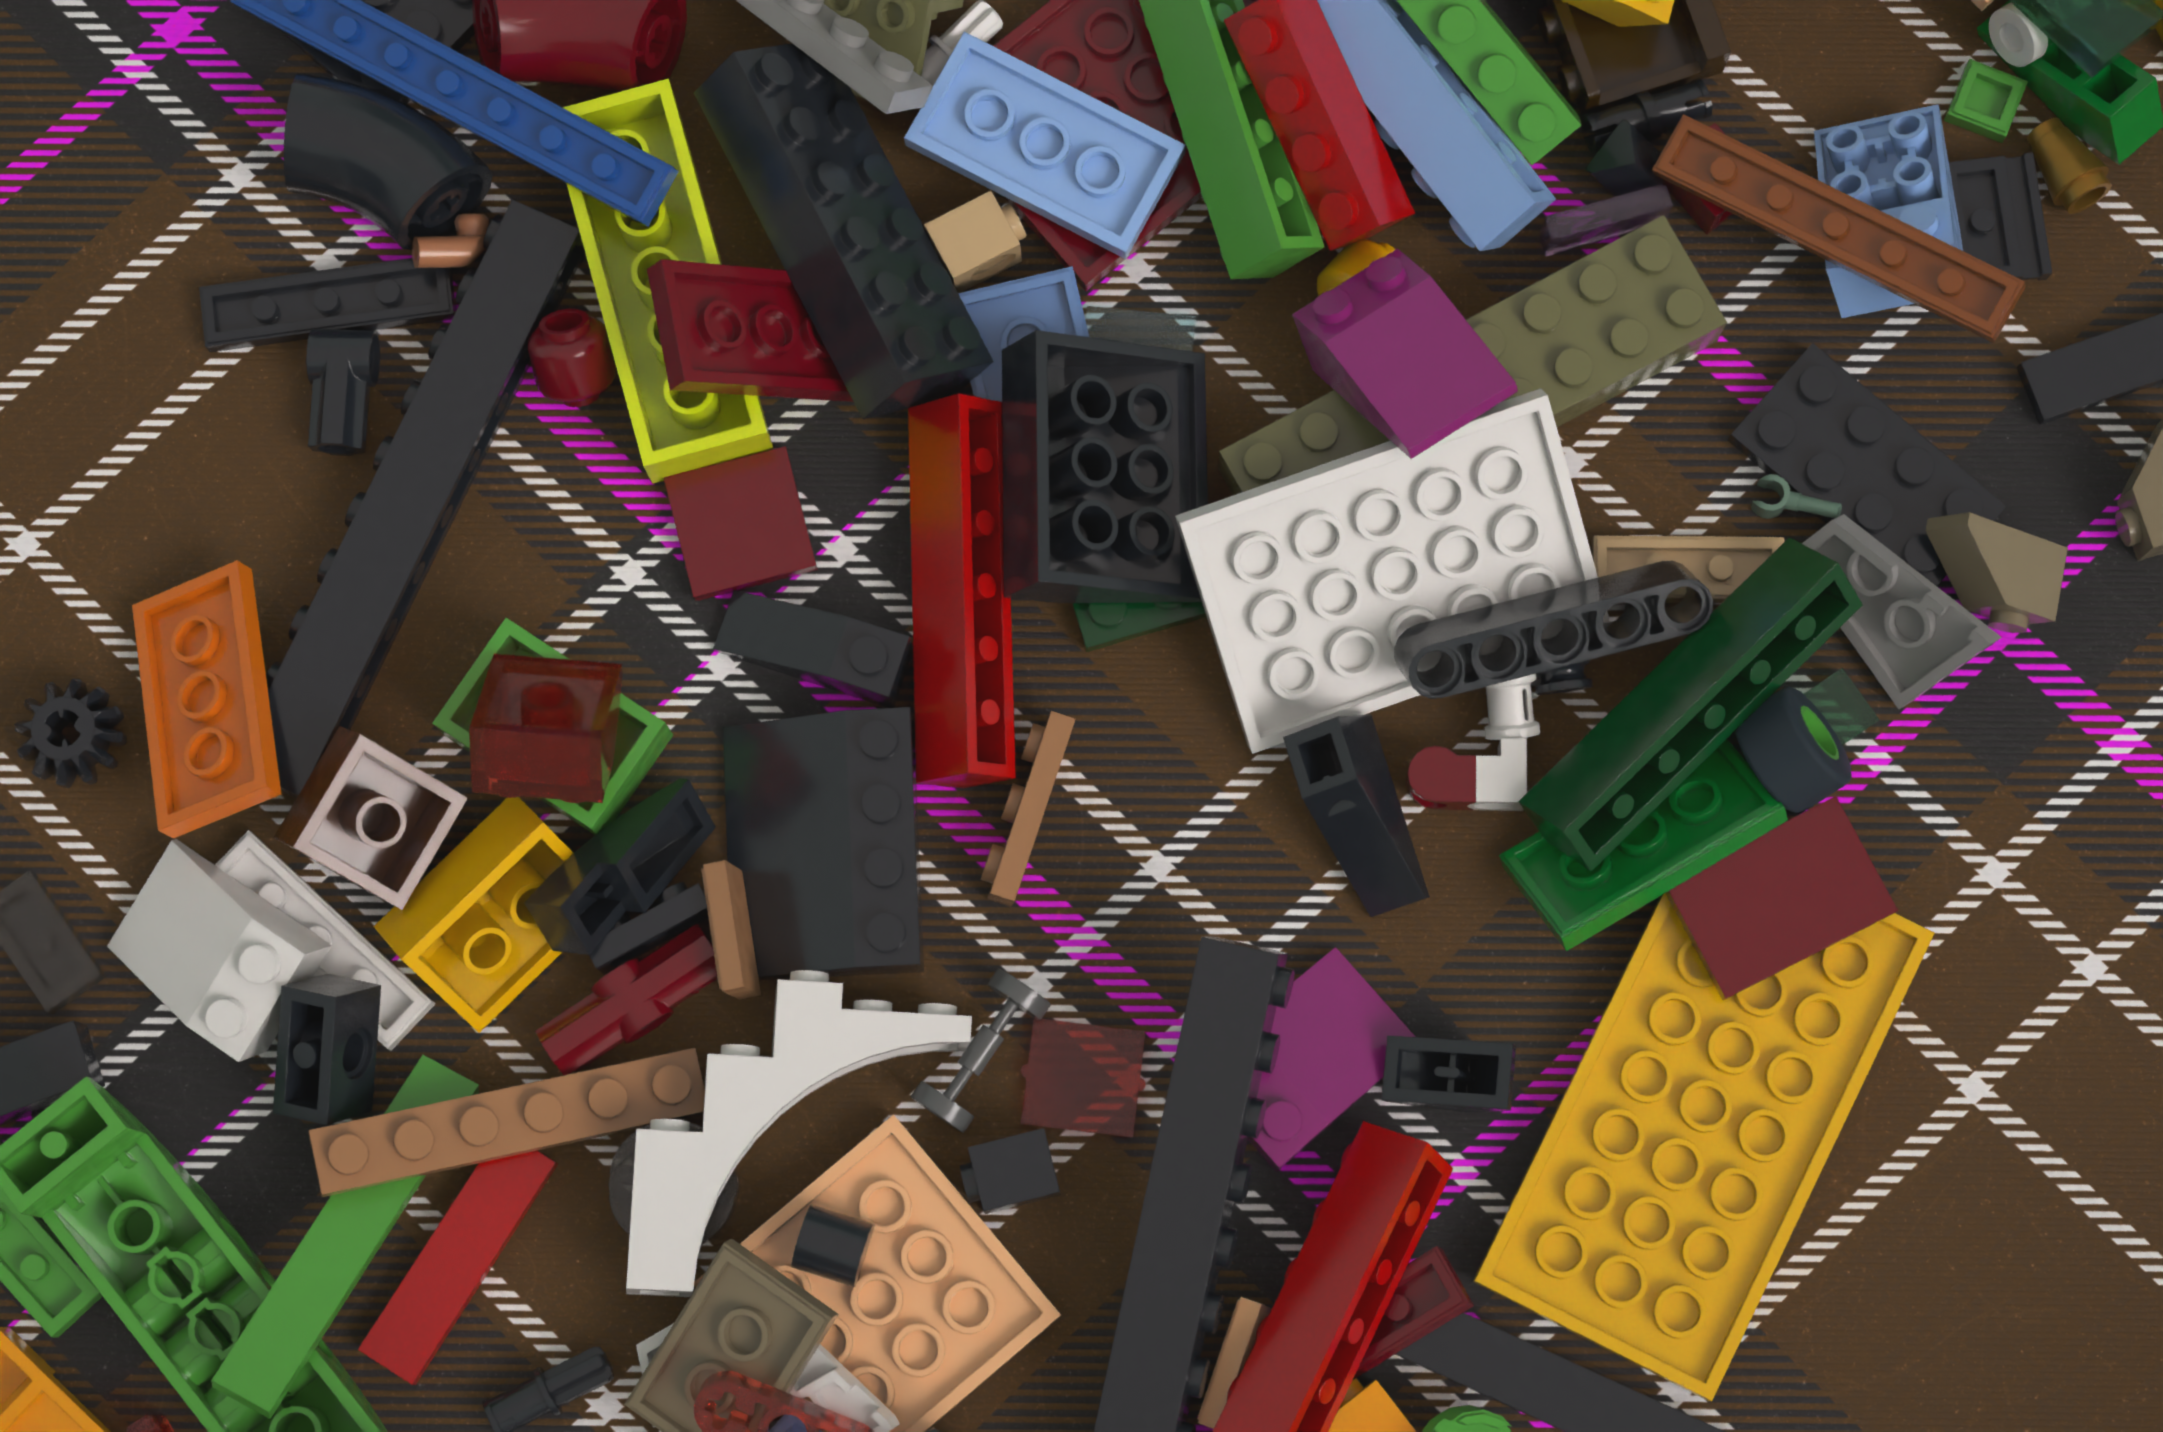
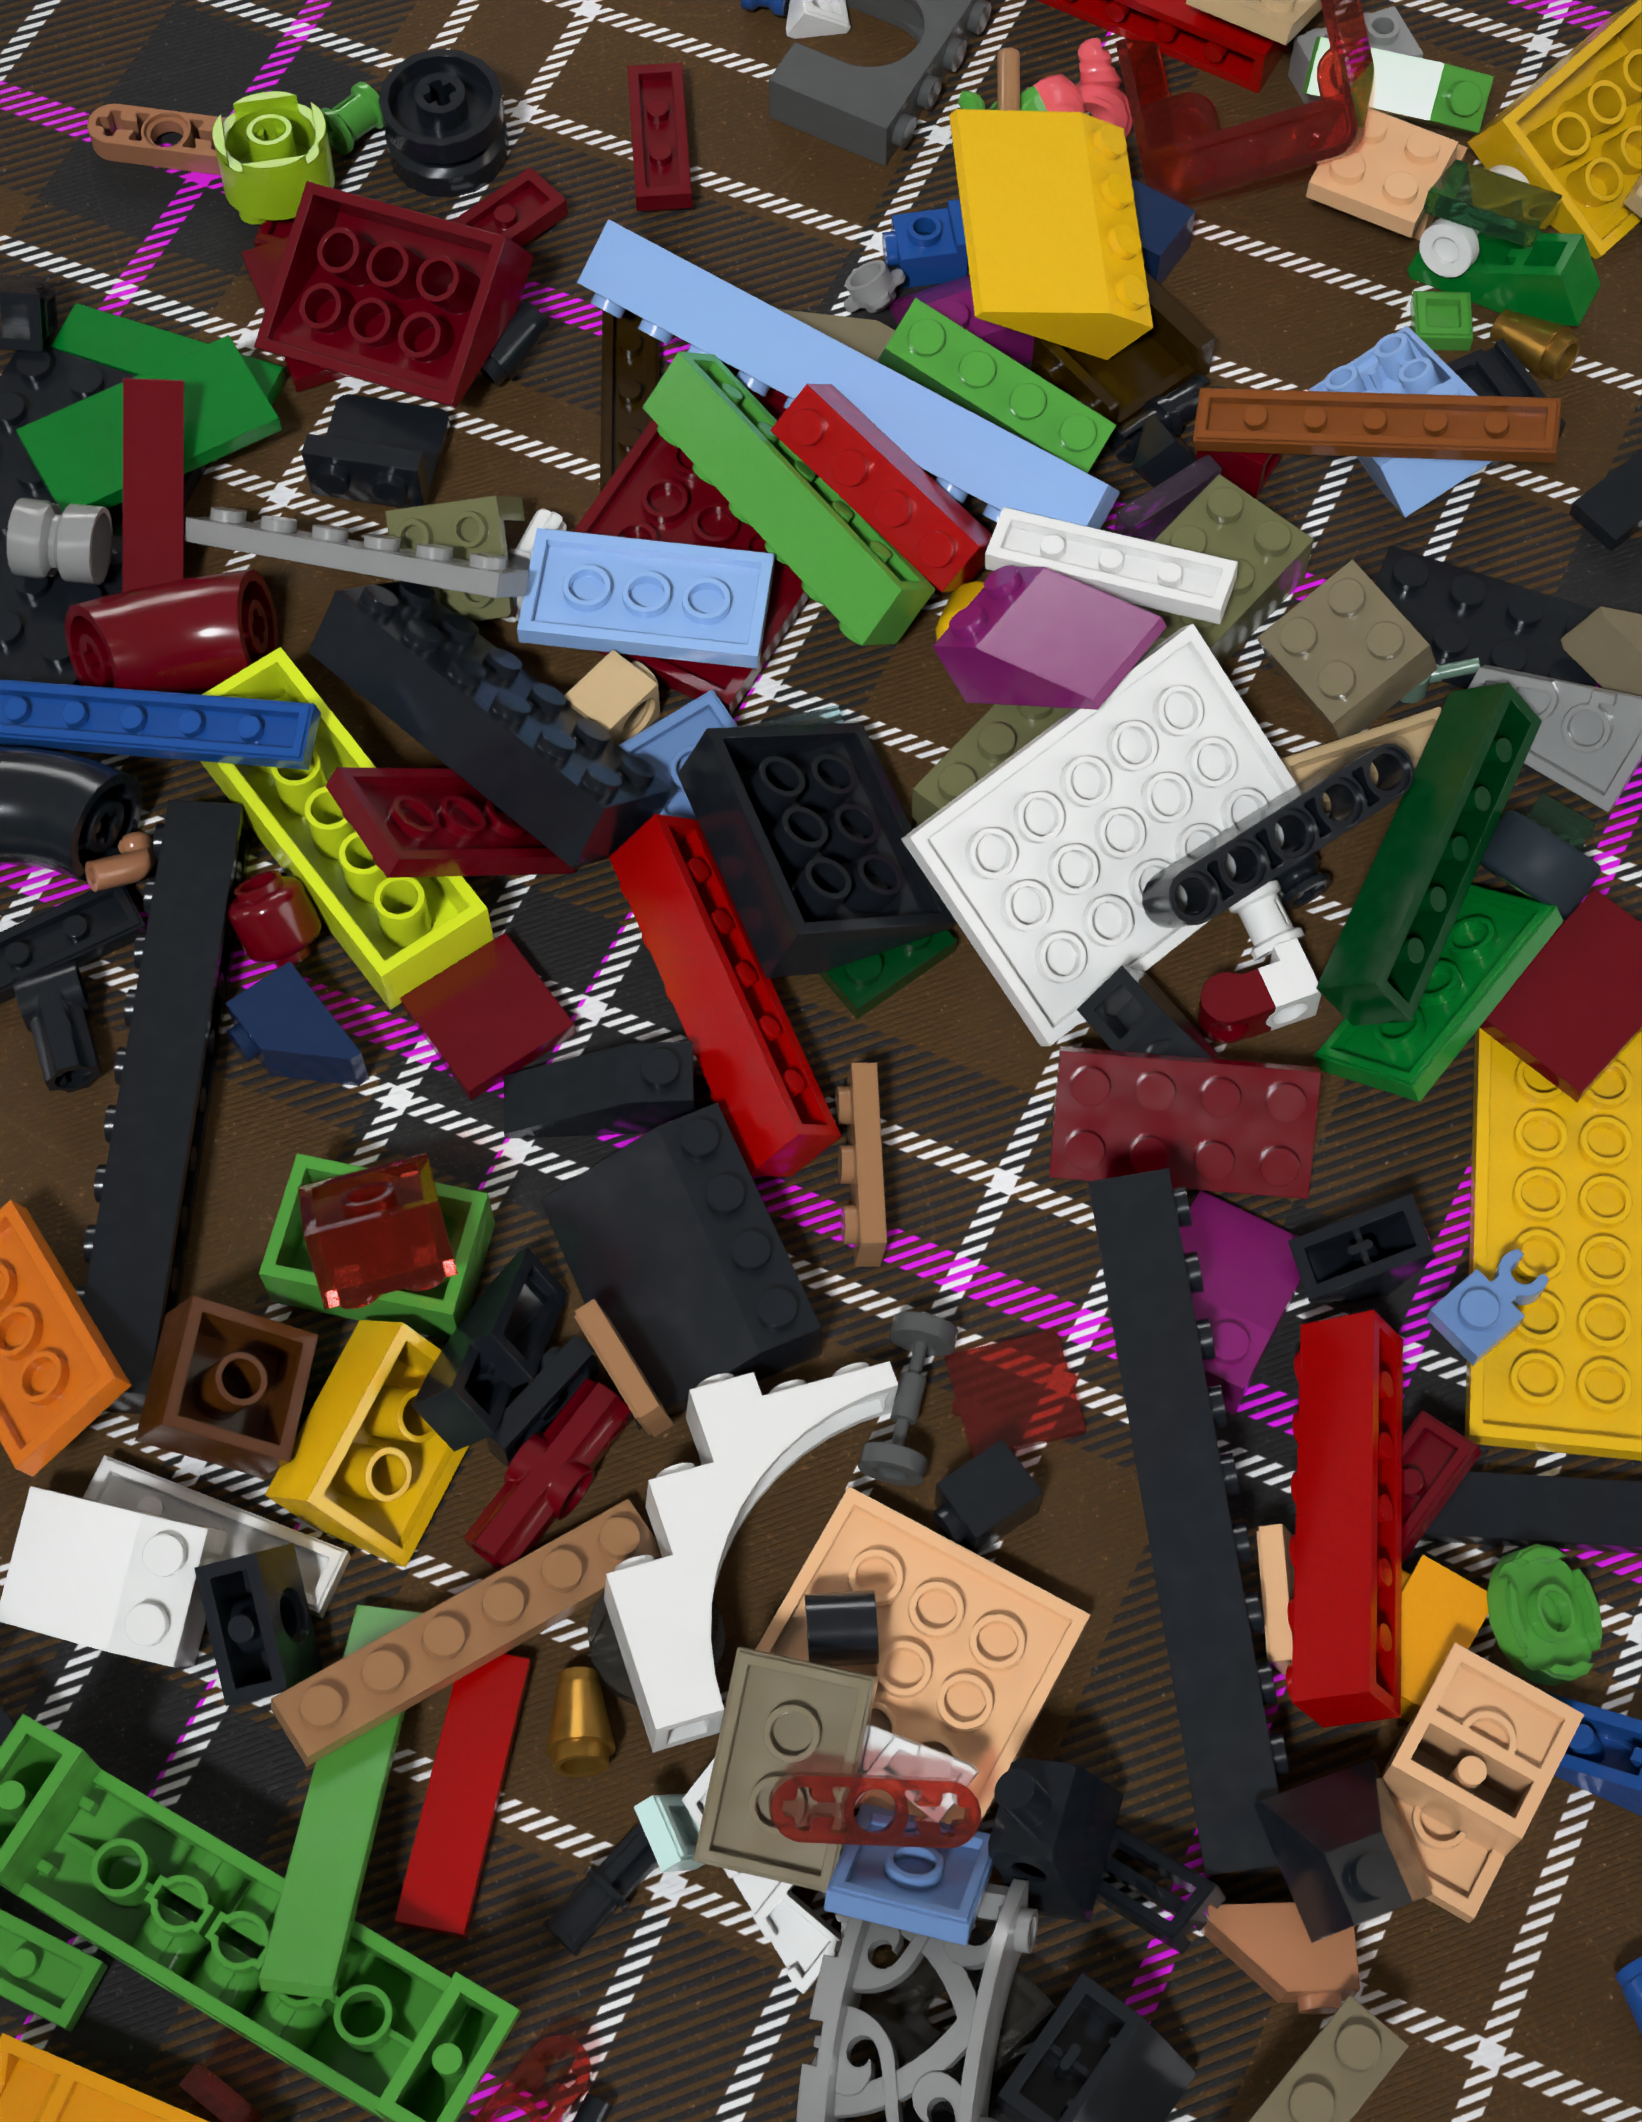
camera: 25 degrees left, 15 degrees down
(551, 475) = (293, 1031): none -> dark blue slope
(577, 1238) = (579, 1725): none -> pearl gold cone
(616, 1365) = (669, 1831): none -> light aqua tile
(1341, 882) = (1202, 1118): none -> dark red plate
(1504, 289) = (1116, 564): none -> white plate
(1535, 1172) = (1483, 1312): none -> medium blue plate
(1709, 454) = (1348, 652): none -> dark tan brick

